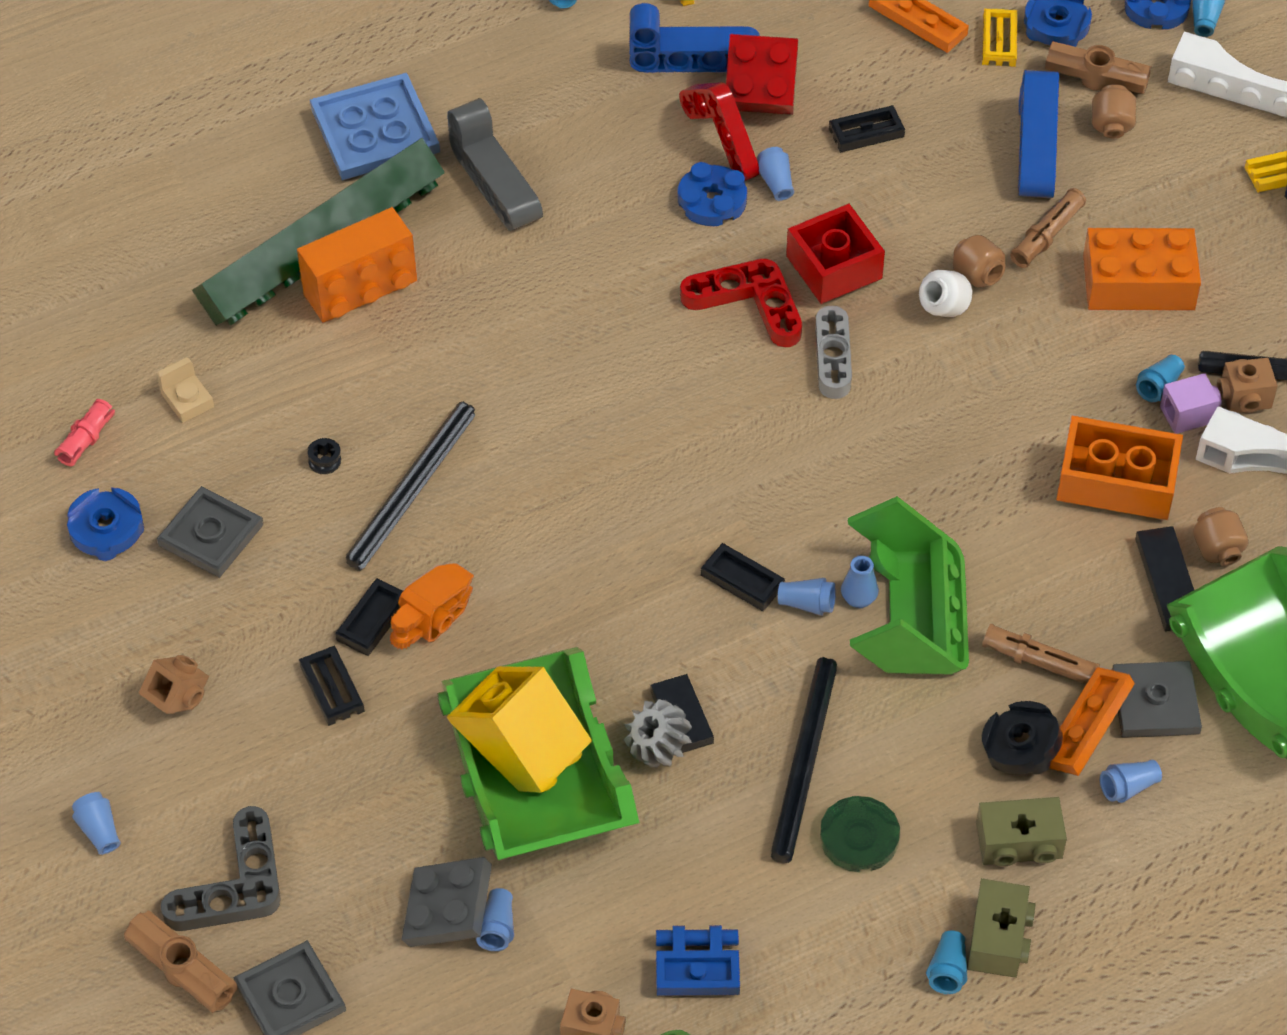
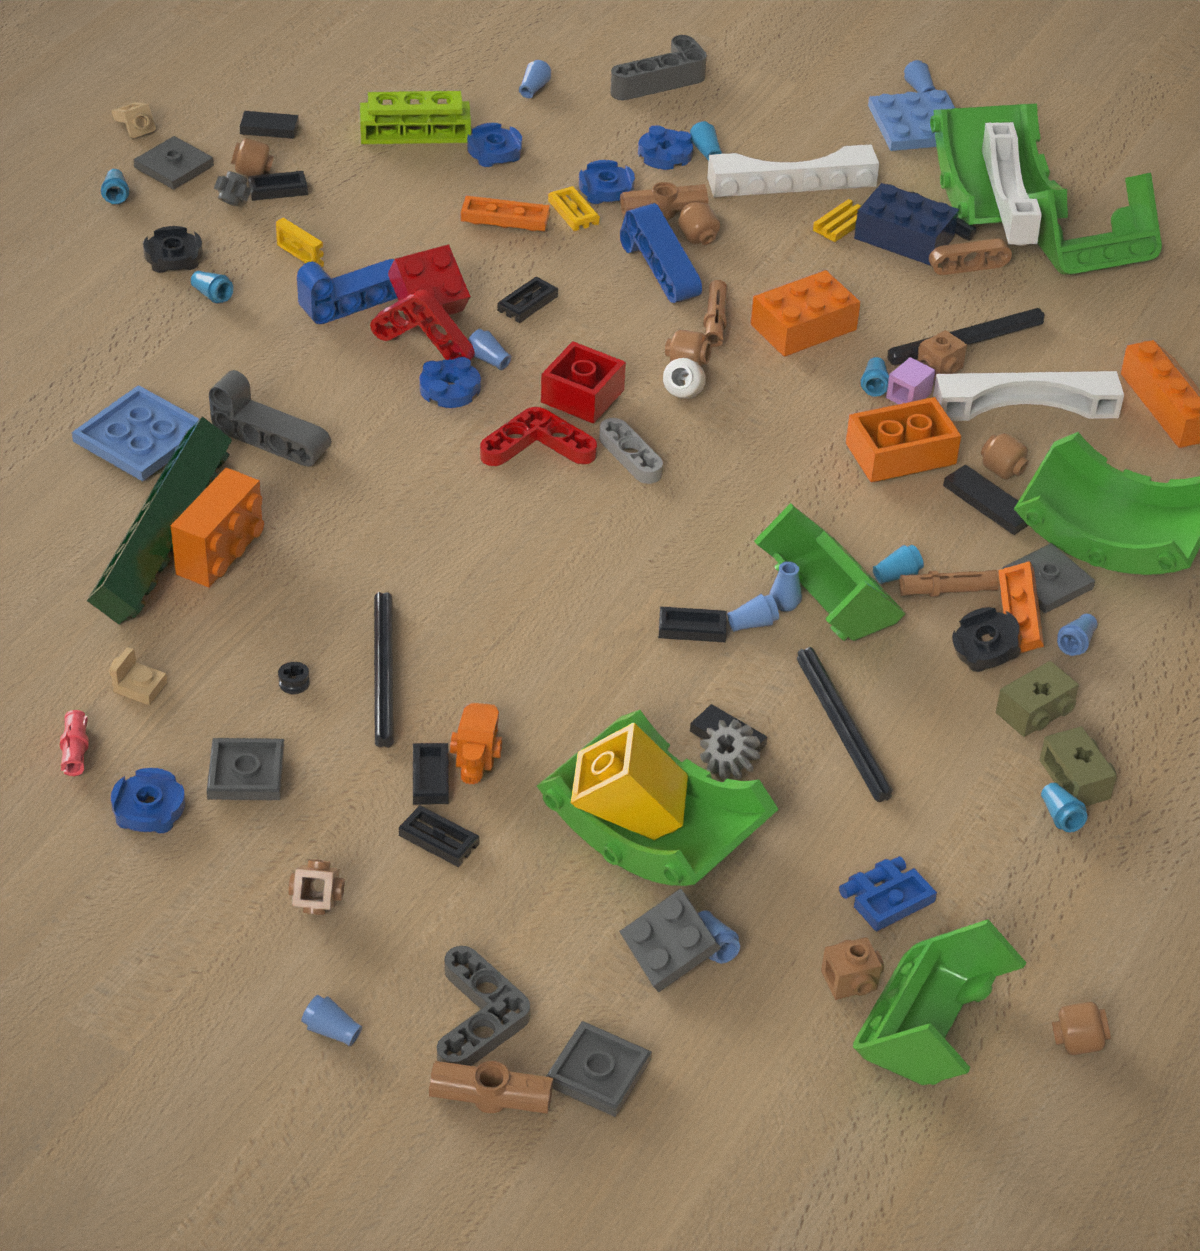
camera: 35 degrees left, 10 degrees down
(859, 833) = (925, 754): clear green tile -> none
(1002, 610) = (901, 562): none -> dark azure cone

